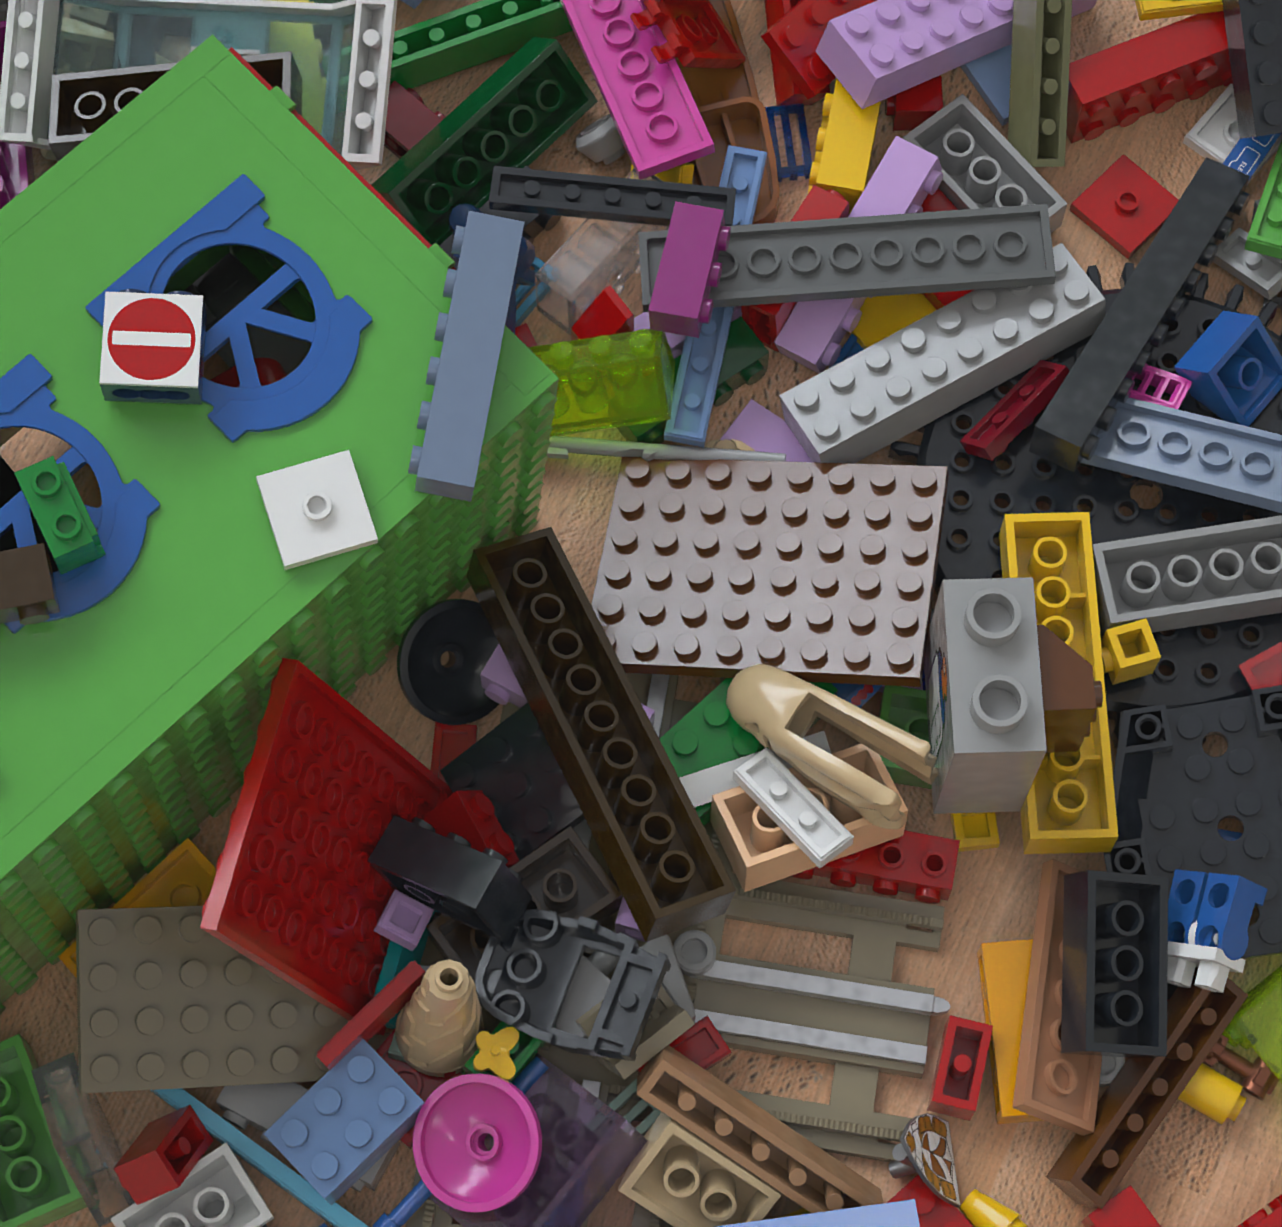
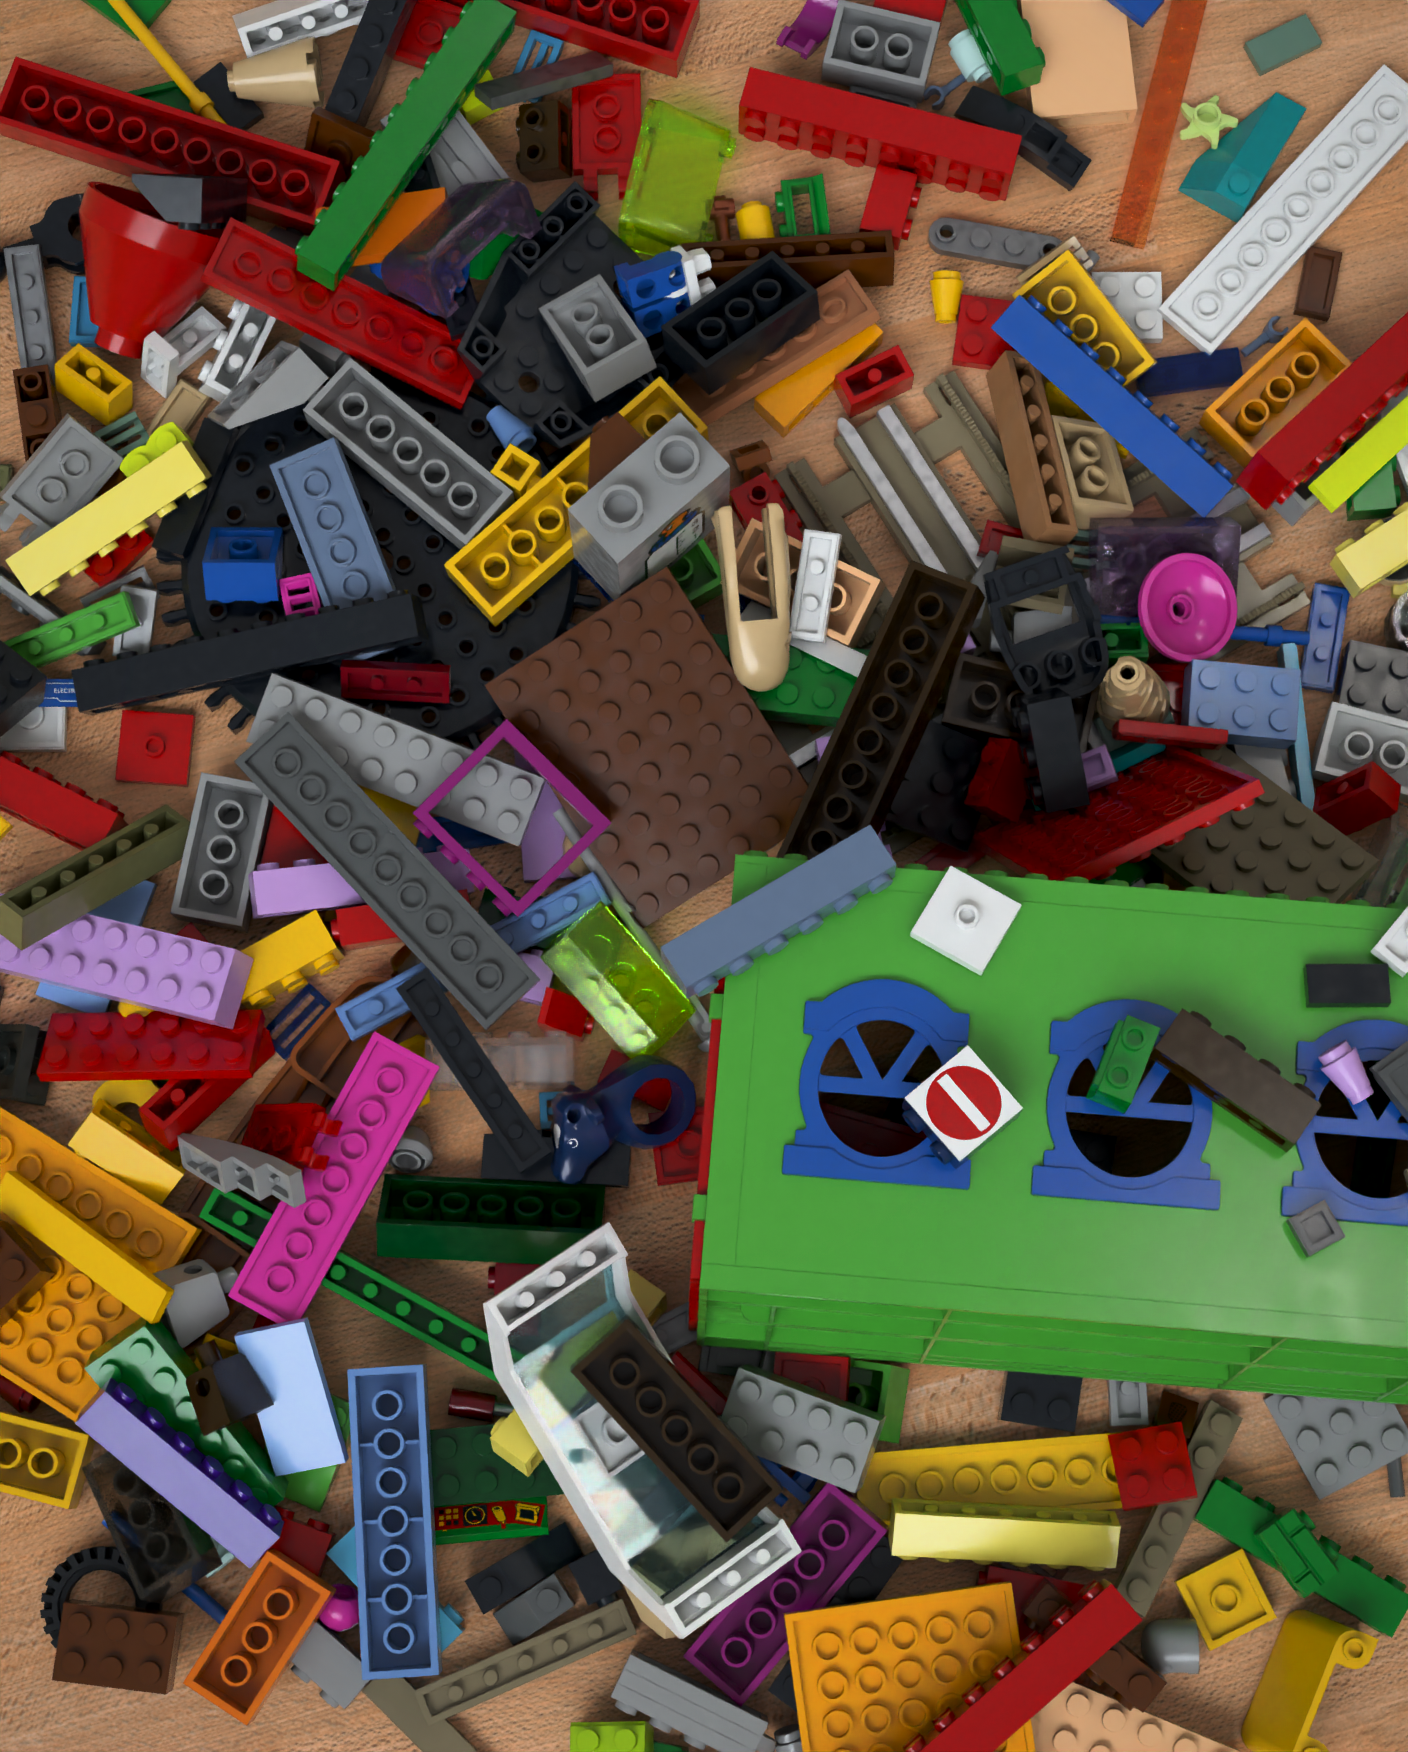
camera: 130 degrees left, 10 degrees up
(495, 1052) = (1126, 640): yellow piece -> none
(688, 270) = (492, 960): magenta brick -> none
(812, 449) = (455, 852): none -> magenta window
(929, 1152) = (945, 356): shield -> none
(979, 899) = (751, 456): none -> dark orange tile
(1177, 688) = (511, 429): none -> medium blue cone
(1184, 1166) = (784, 203): none -> green window
(1207, 826) = (598, 337): none -> light grey slope

